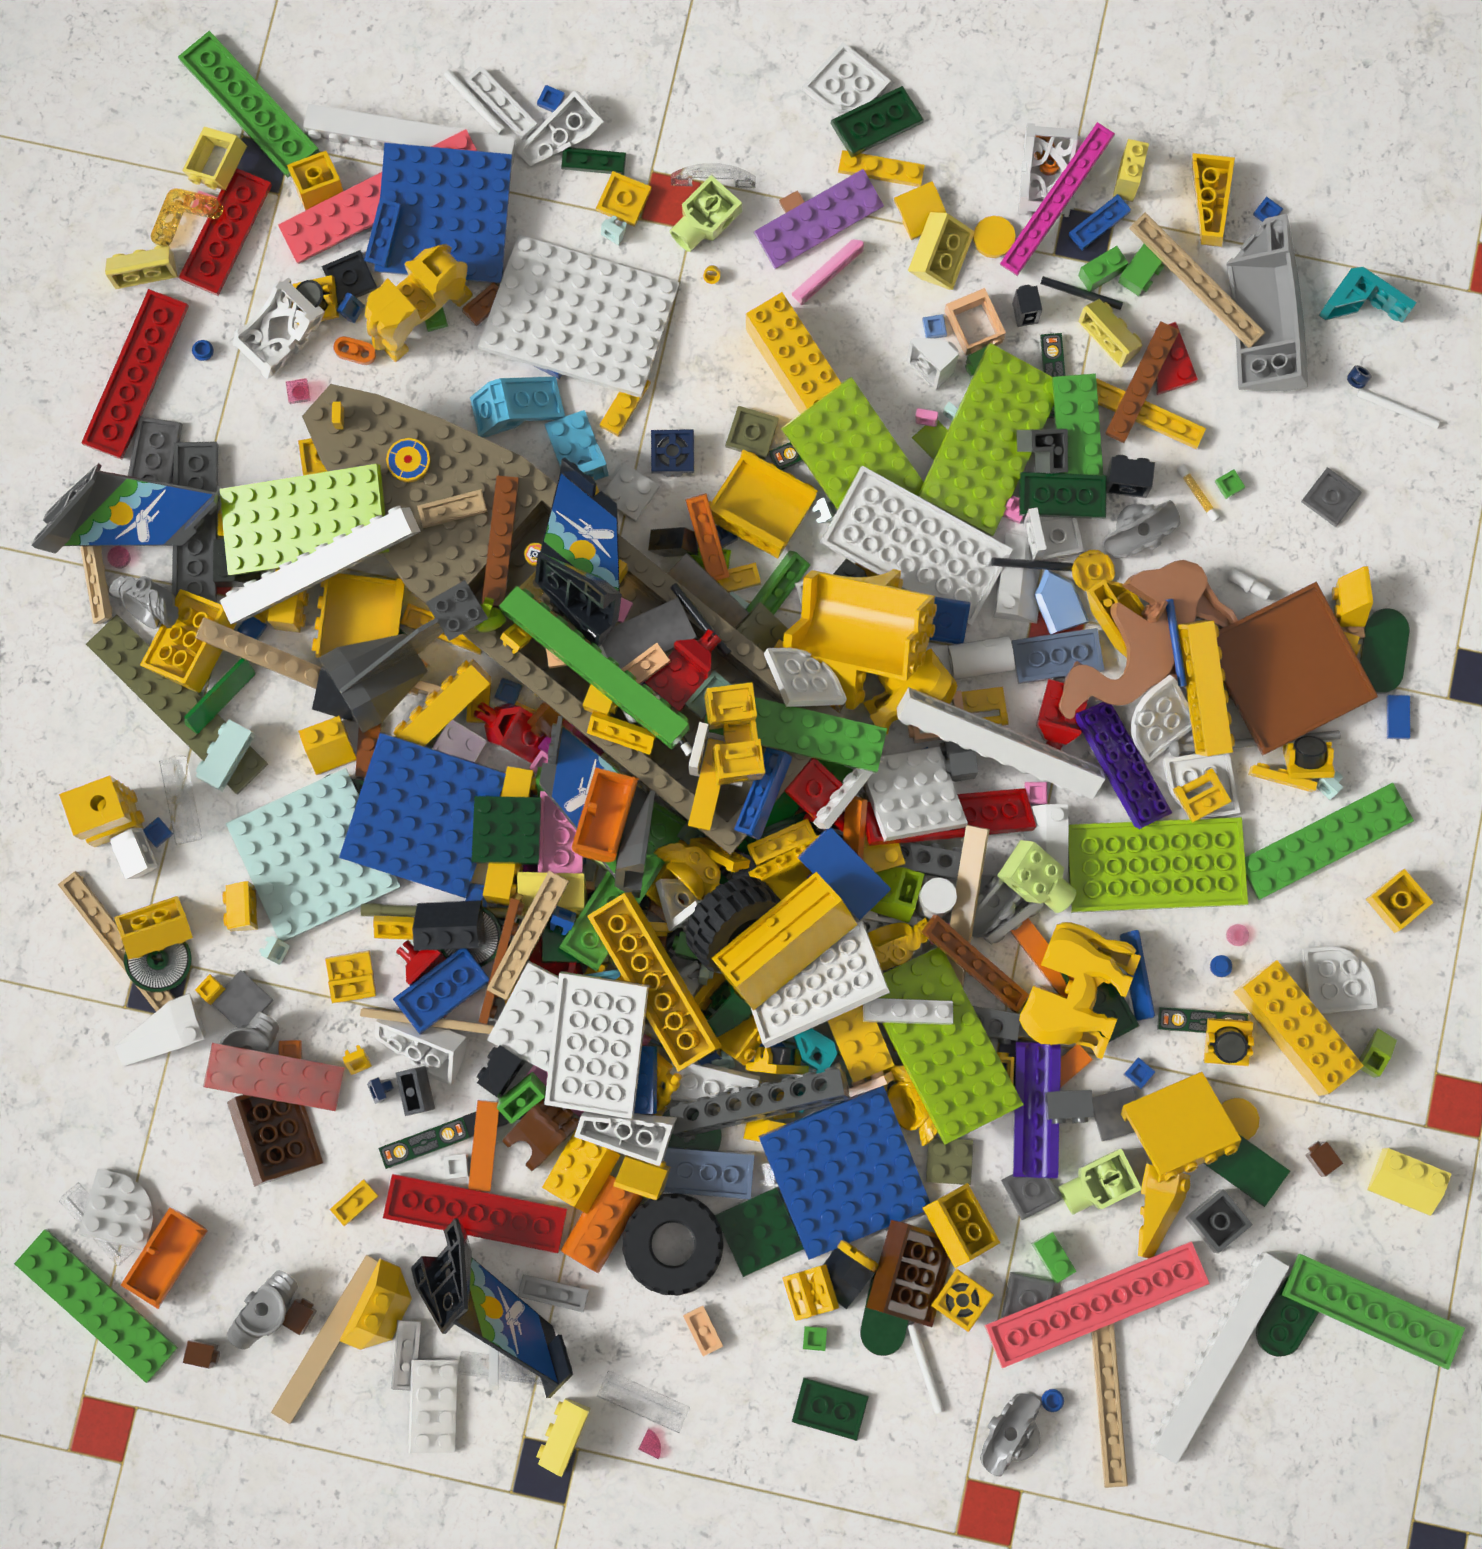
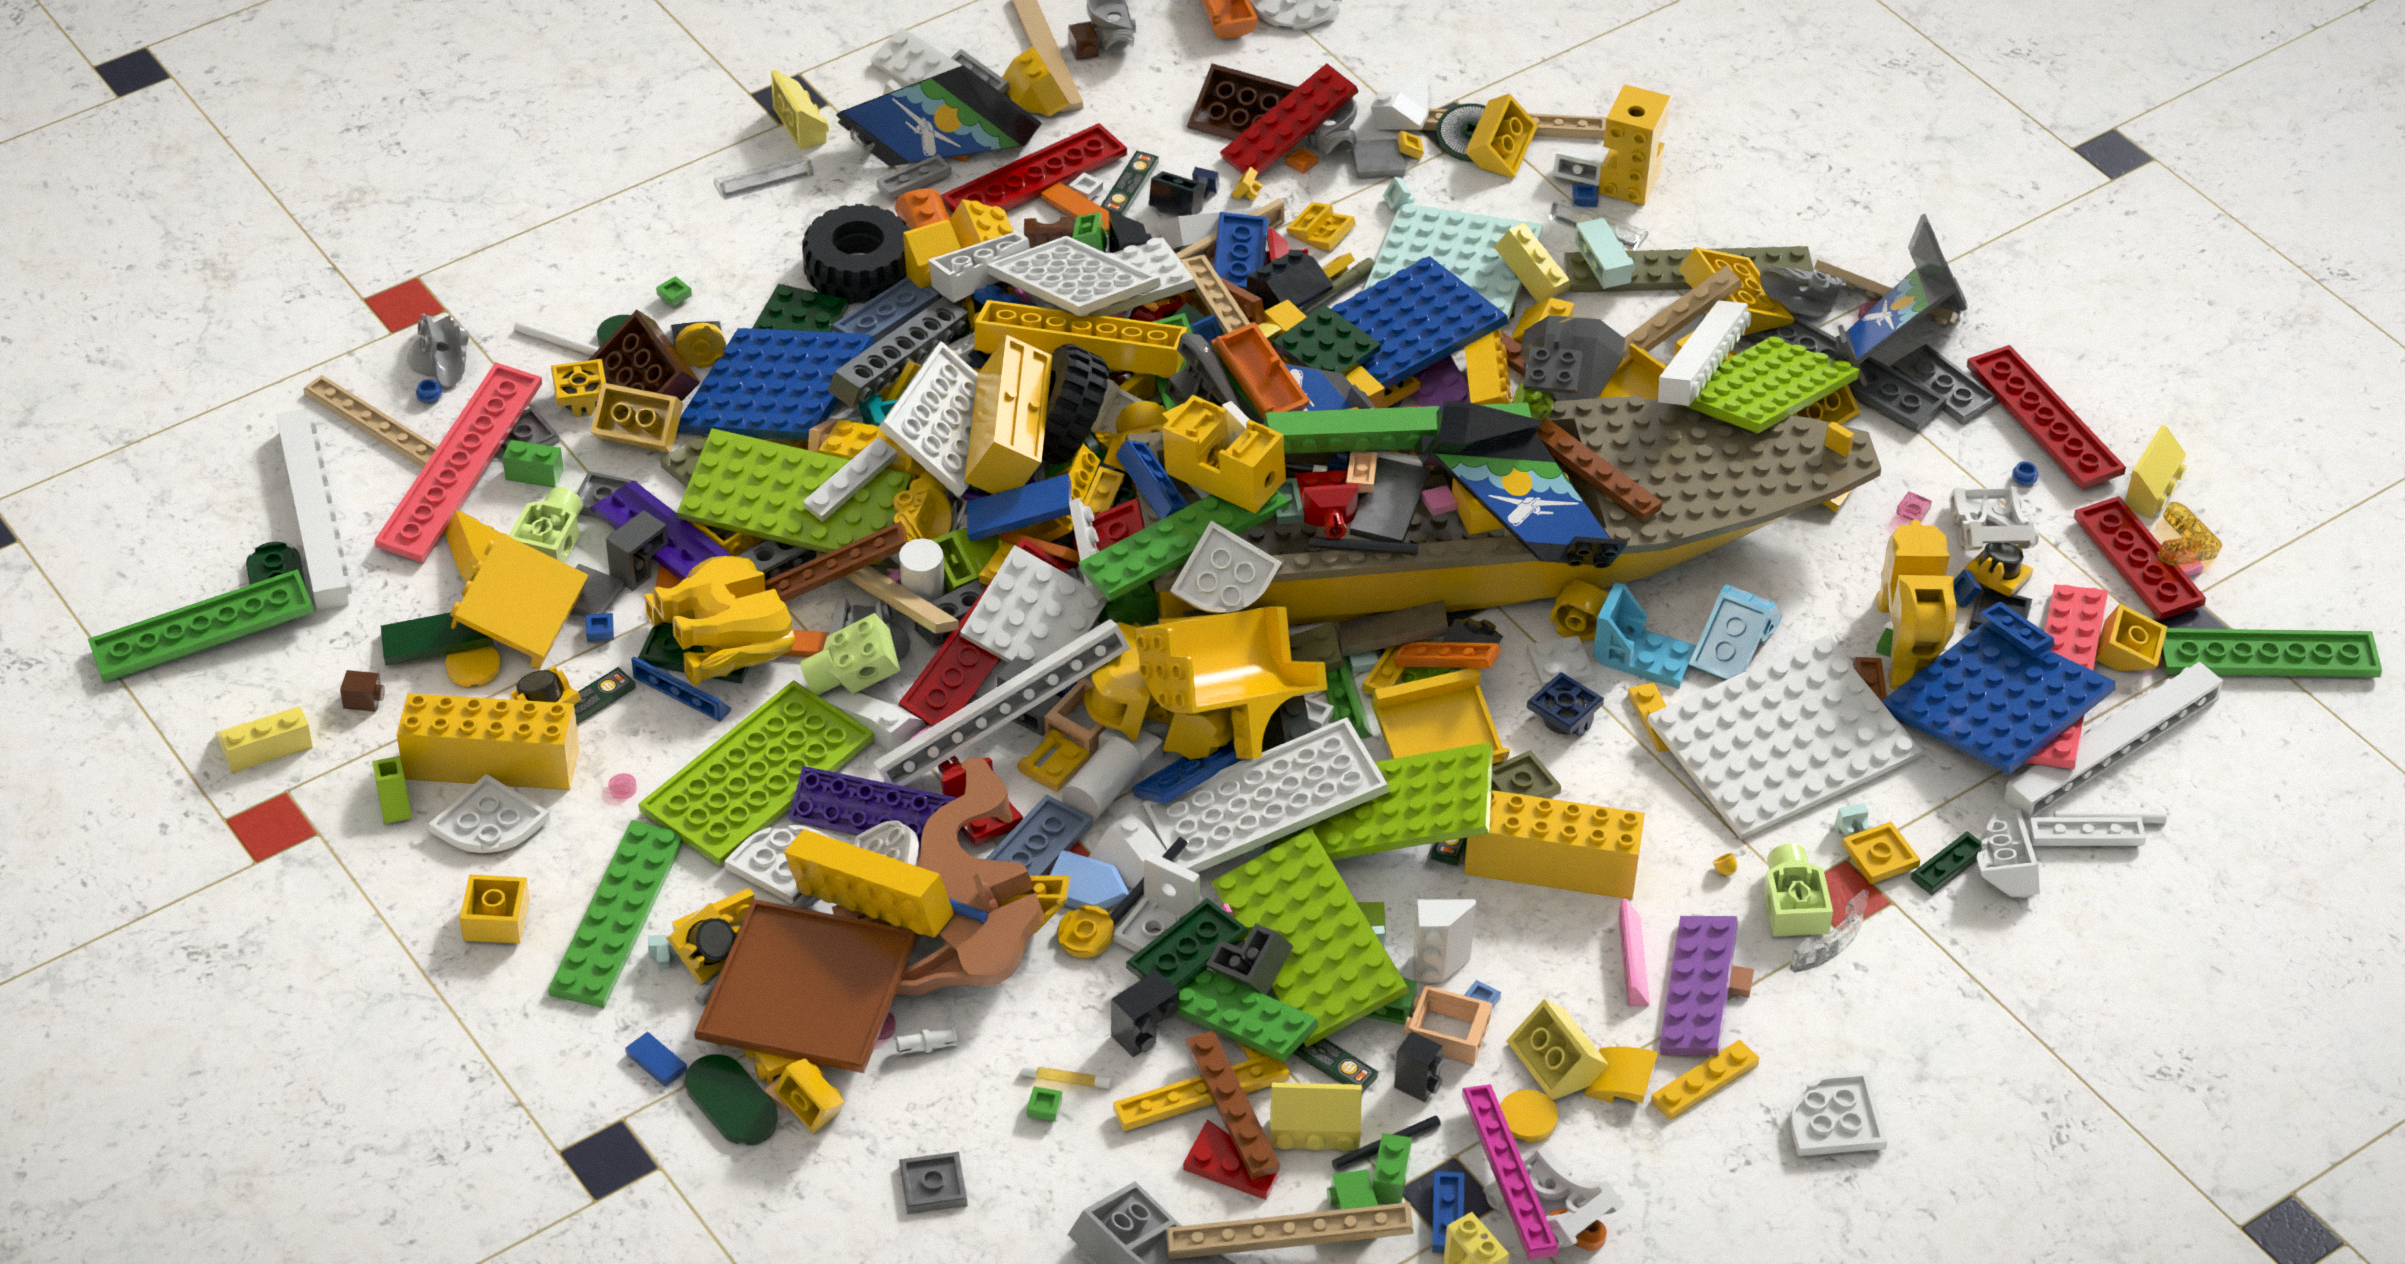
camera: 130 degrees right, 35 degrees down
(201, 152) = (2244, 595): light yellow window -> none
(219, 695) = (1661, 274): green slope -> none
(240, 906) = (1455, 193): yellow slope -> none
(280, 788) = (1532, 263): none -> light yellow slope
(354, 1202) = (1132, 119): yellow plate -> none
(408, 460) = (1744, 460): tile -> none
(452, 508) = (1663, 460): tan tile -> none
(550, 98) = (2054, 870): blue plate -> none
(651, 1444) = (726, 160): clear pink tile -> none
(703, 1330) = (769, 236): light nougat plate -> none
(810, 1292) = (711, 310): yellow slope -> none
(830, 1409) = (609, 269): dark green tile -> none
(876, 121) = (1762, 1107): dark green tile -> none
(926, 417) = (1390, 914): bright pink tile -> none
(1126, 539) = (1073, 1020): light grey piece -> none
(1205, 802) = (767, 832): yellow plate -> none
(1219, 1221) = (412, 579): dark grey brick -> none
(1221, 966) = (611, 751): blue plate -> none

